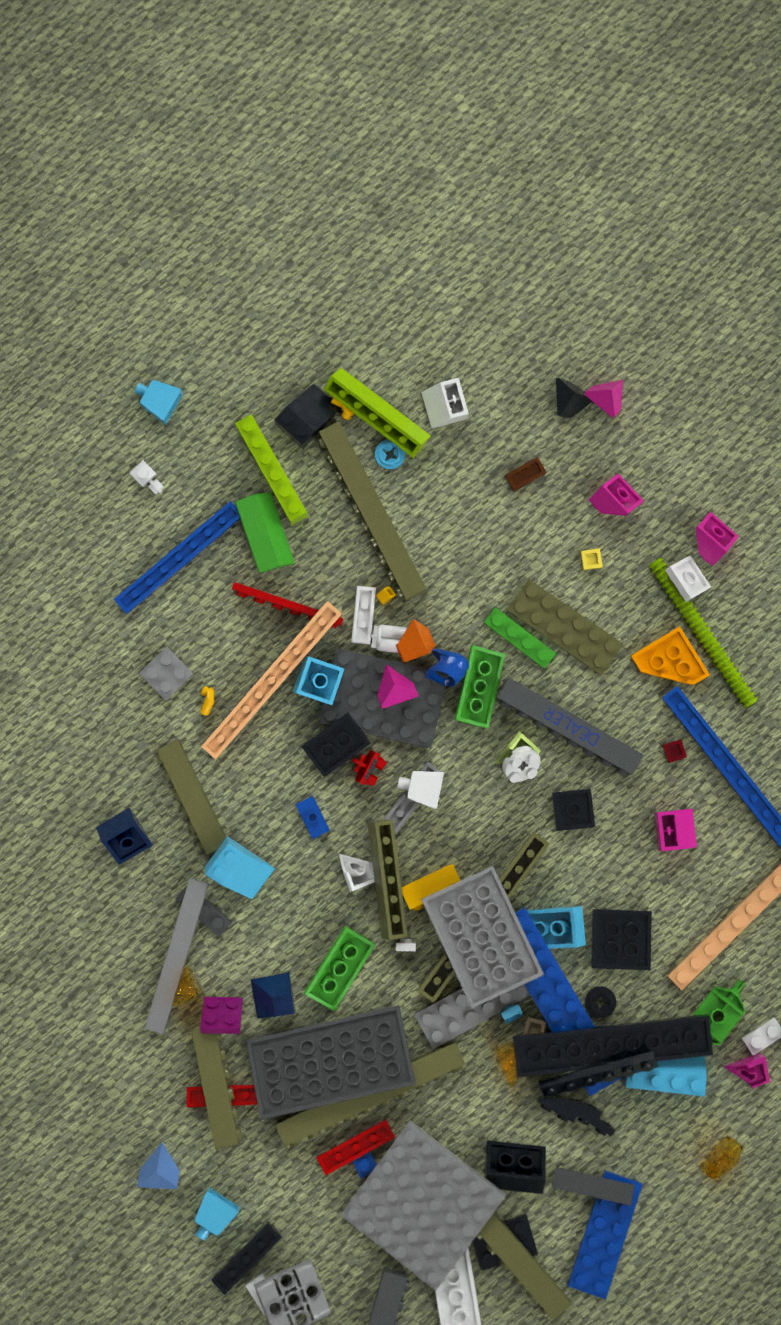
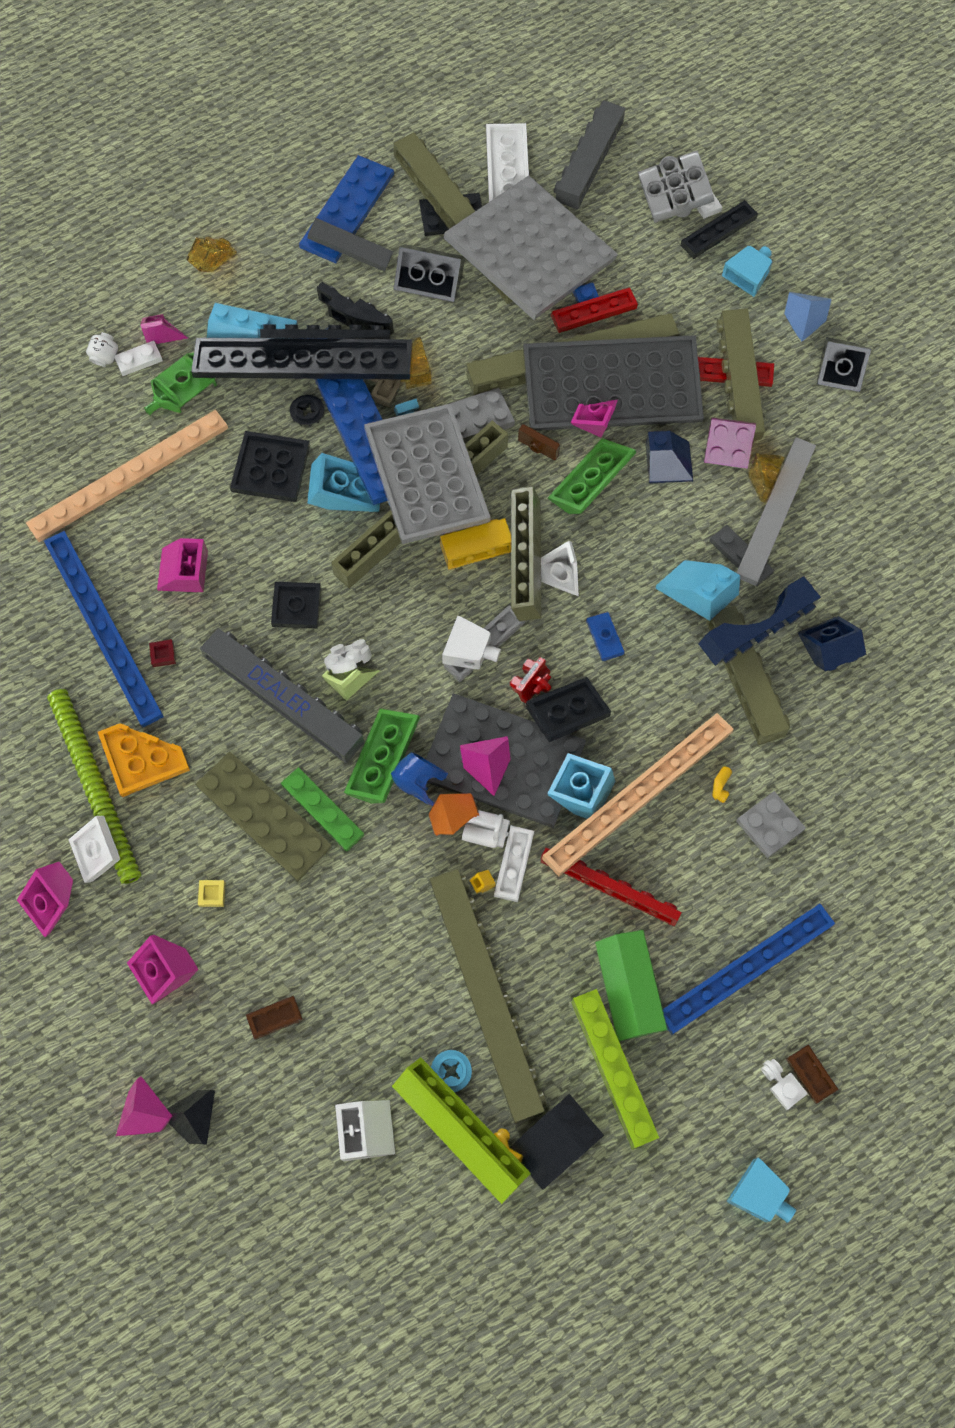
camera: 170 degrees left, 15 degrees down
(124, 1117) = (843, 364): none -> black slope
(126, 487) = (812, 1074): none -> reddish brown plate
(159, 866) = (728, 639): none -> dark blue arch
(342, 1024) = (594, 417): none -> dark pink slope
(390, 994) = (538, 442): none -> reddish brown plate
(406, 945) = (512, 484): white plate -> none

